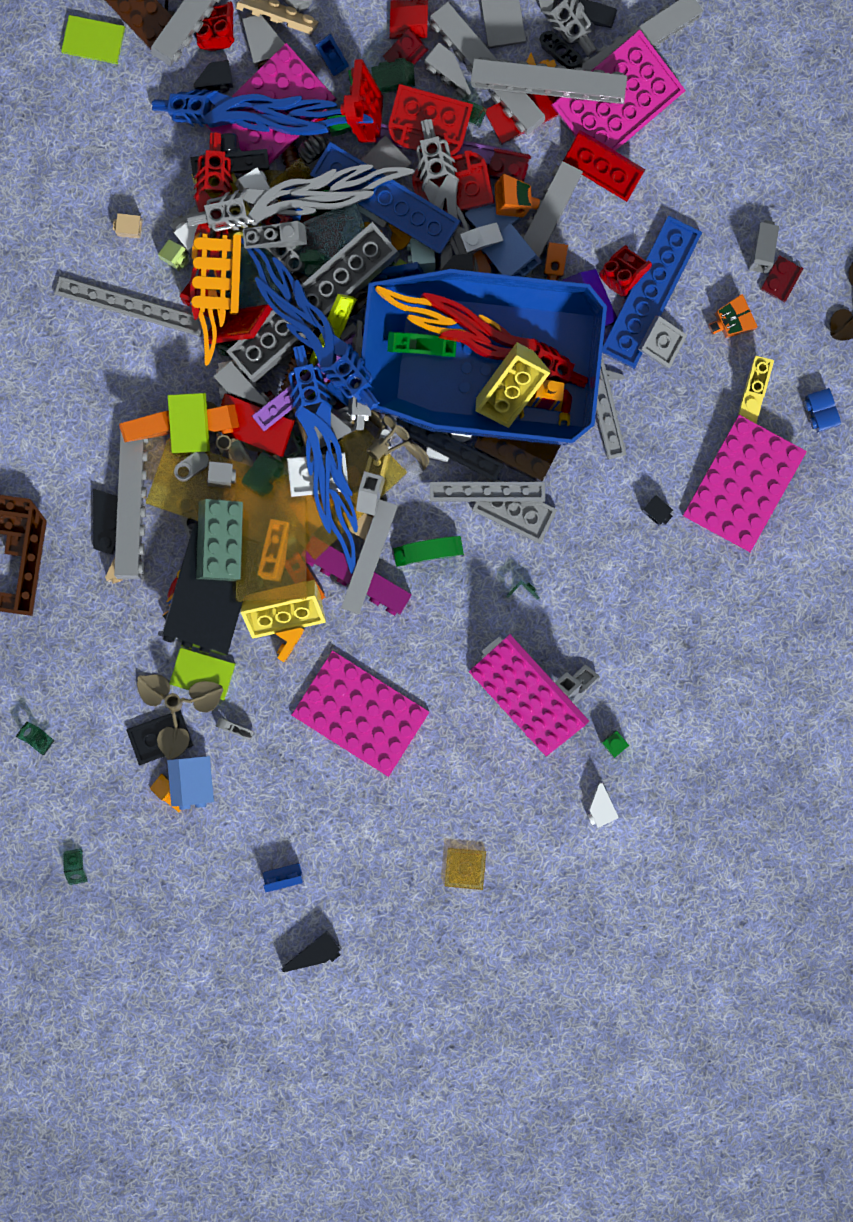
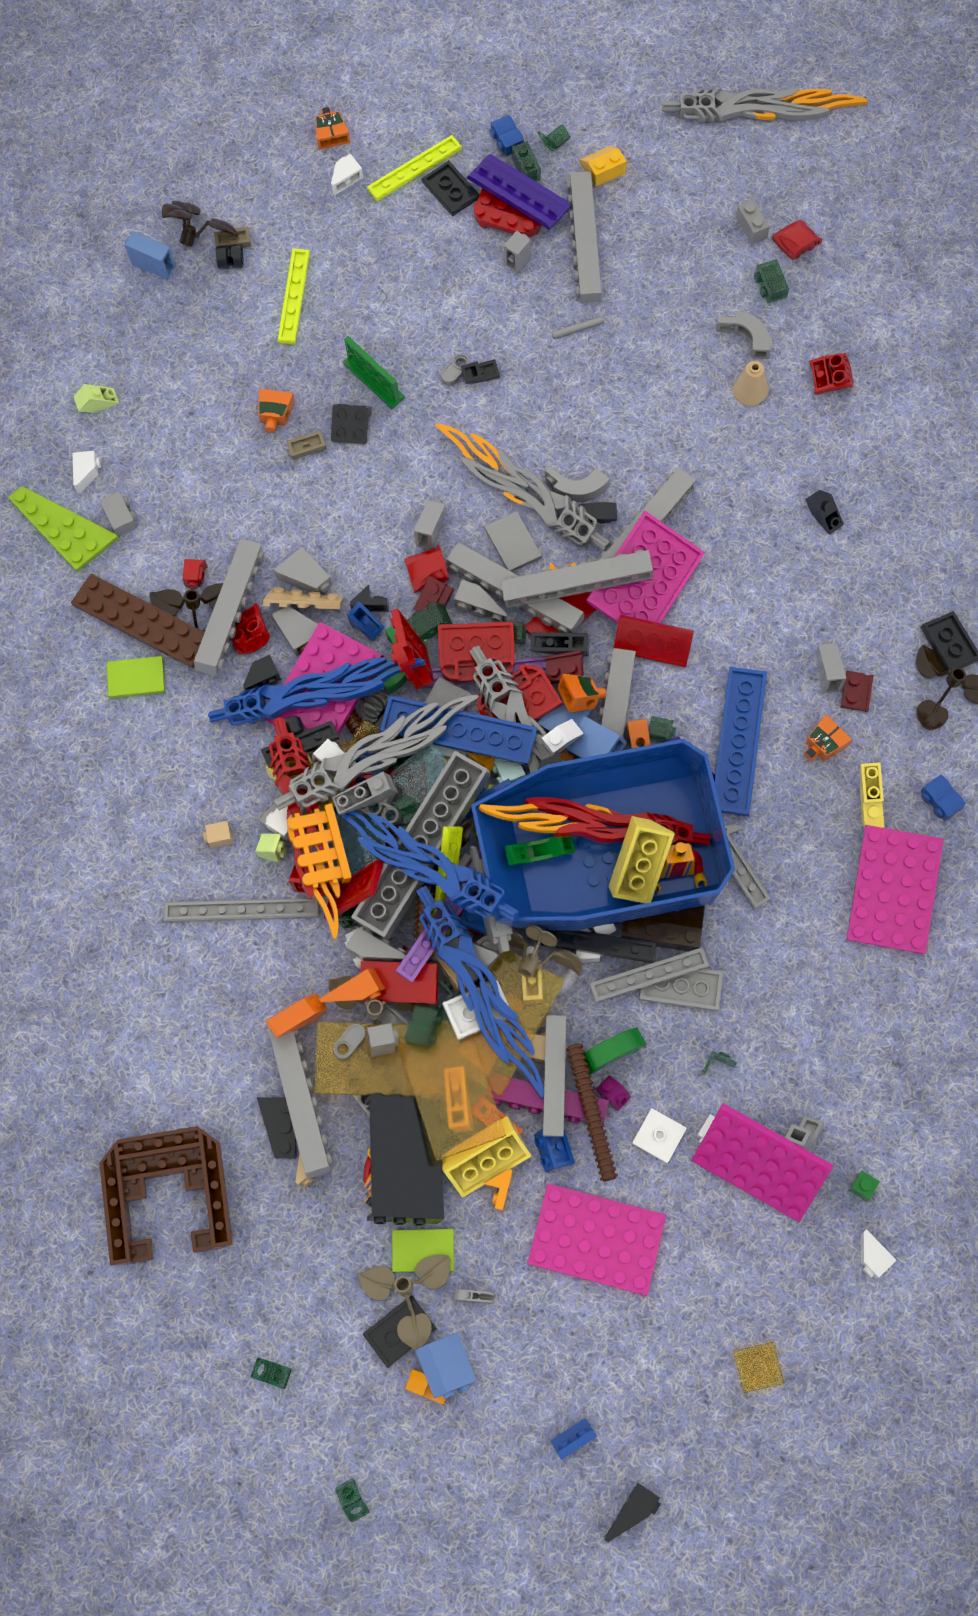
camera: 15 degrees left, 15 degrees down
(188, 423) = (334, 999): lime tile -> none
(219, 540) = (400, 1104): sand green brick -> none
(338, 32) = (375, 604): none -> black slope
(347, 624) = (554, 1151): none -> blue bracket
(369, 493) = (535, 1010): light grey slope -> none
(391, 600) = (591, 1112): none -> reddish brown piece
(419, 588) = (614, 1092): none -> magenta bracket
(447, 640) = (659, 1135): none -> white plate
(513, 139) = (560, 643): none -> black slope
(558, 43) = (587, 552): black beam -> none
(580, 257) = (661, 729): none -> clear green brick
(624, 270) = (707, 728): red slope -> none
(658, 511) = (821, 942): black brick -> none
(662, 342) = (766, 782): light grey plate -> none
(819, 84) = (825, 510): none -> black slope

